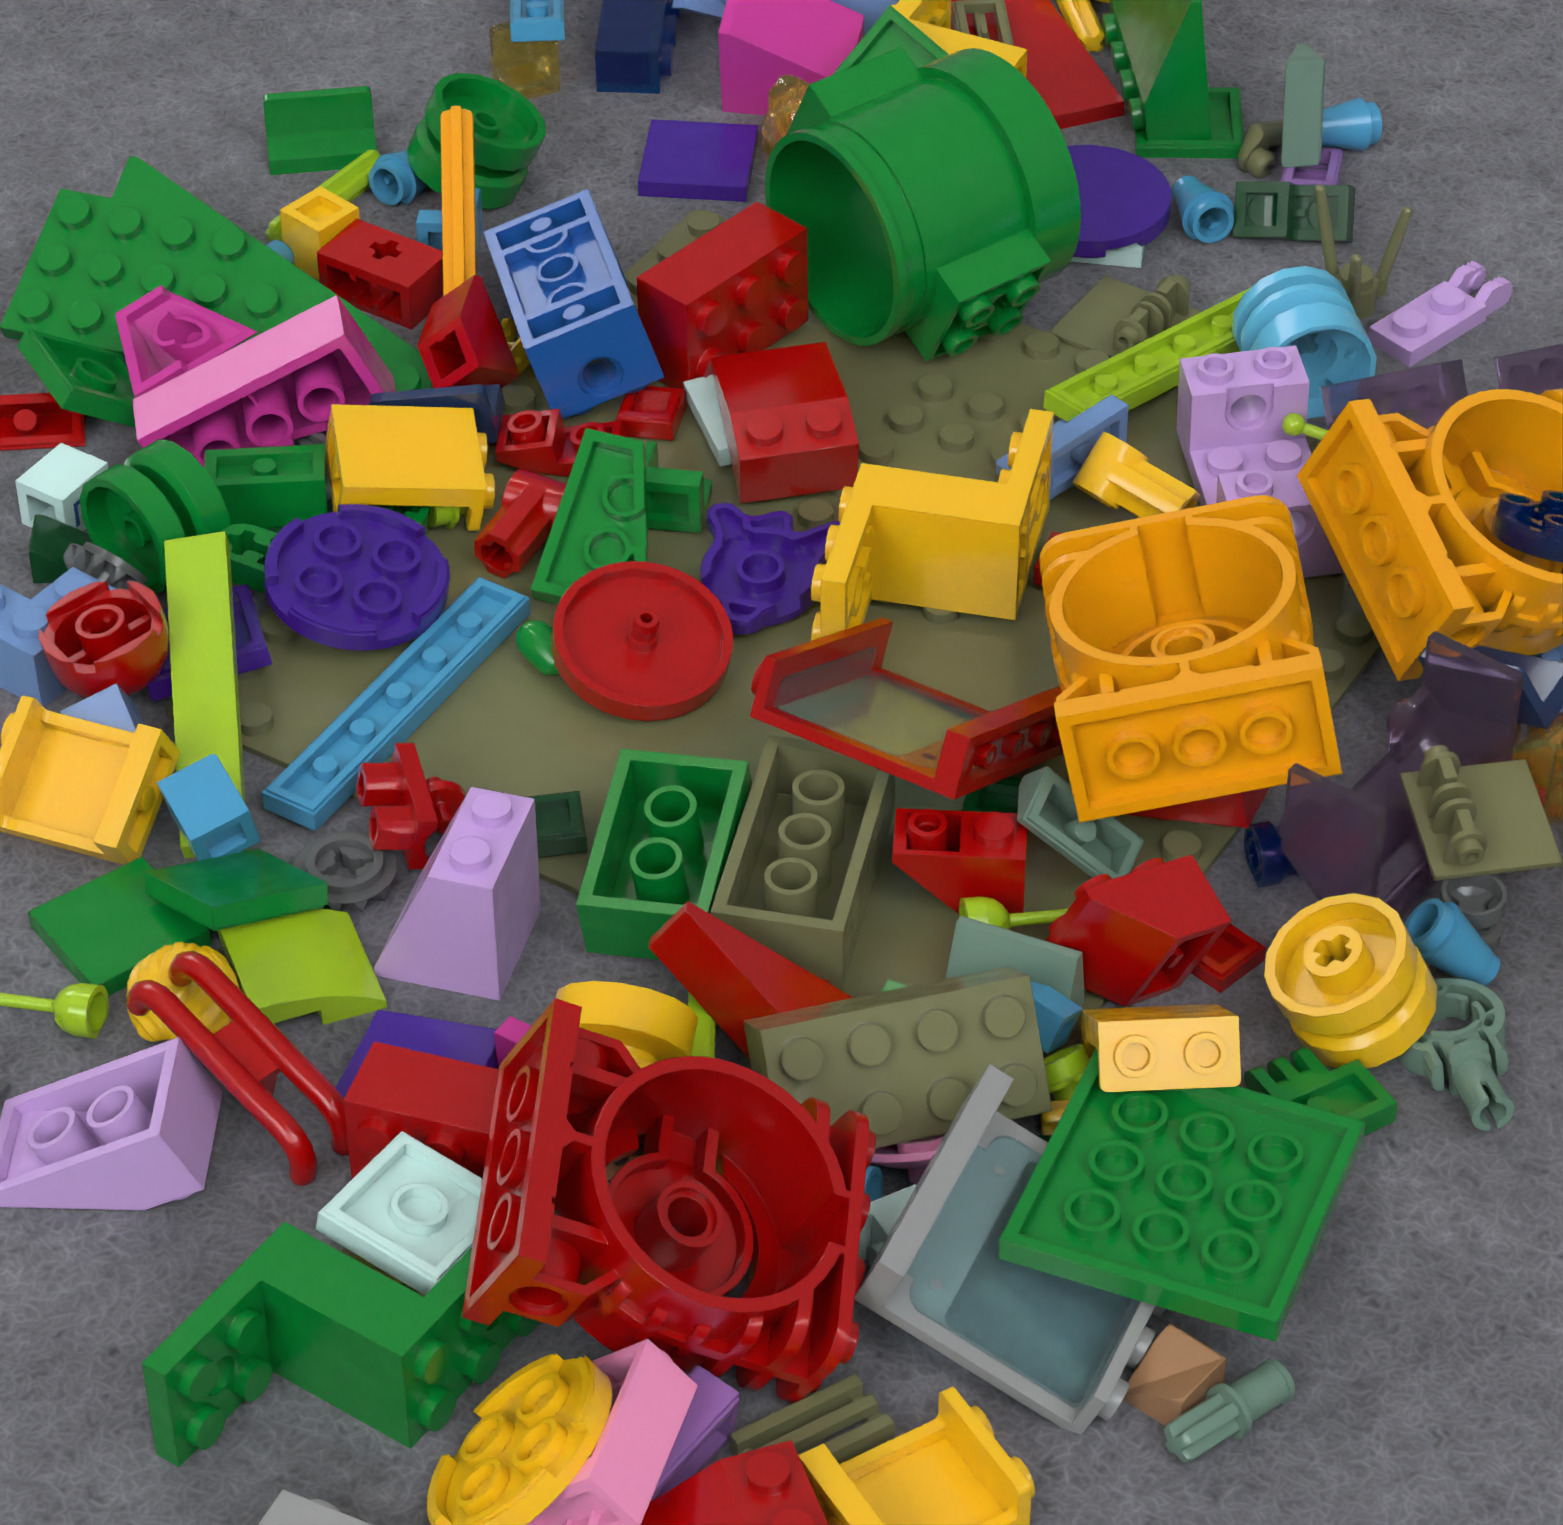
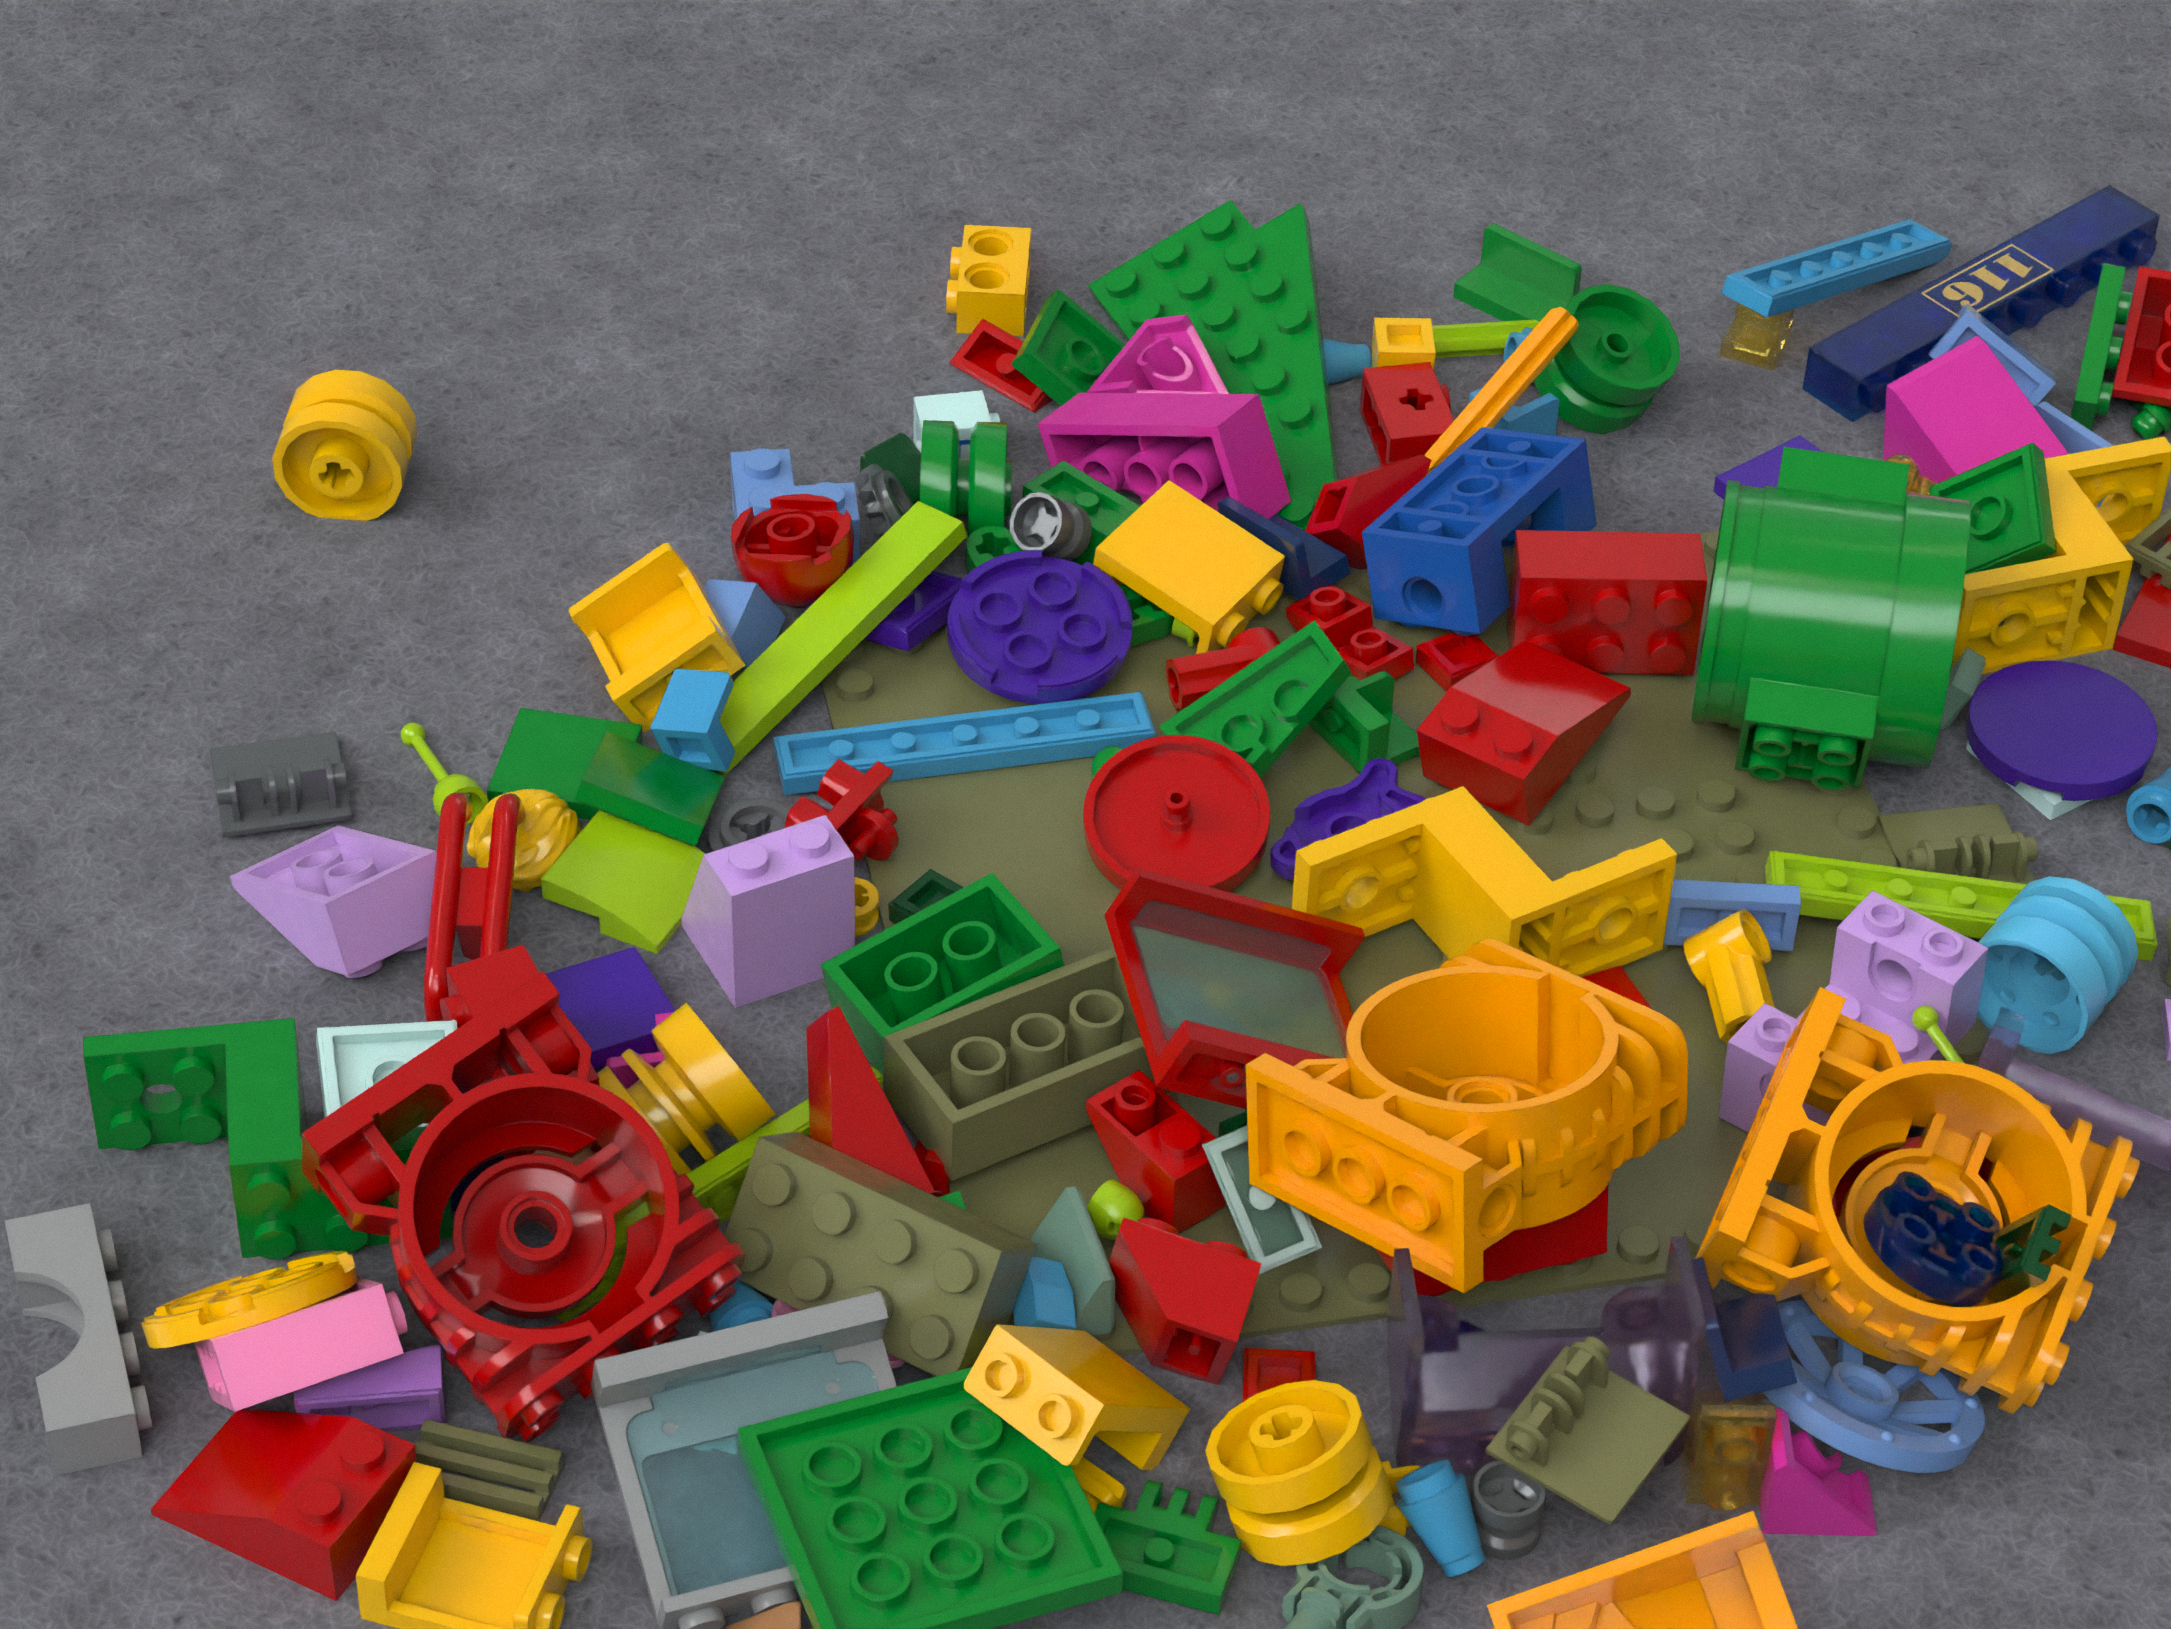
camera: 45 degrees right, 0 degrees up
(265, 494) = (1051, 526): none -> dark grey wheel

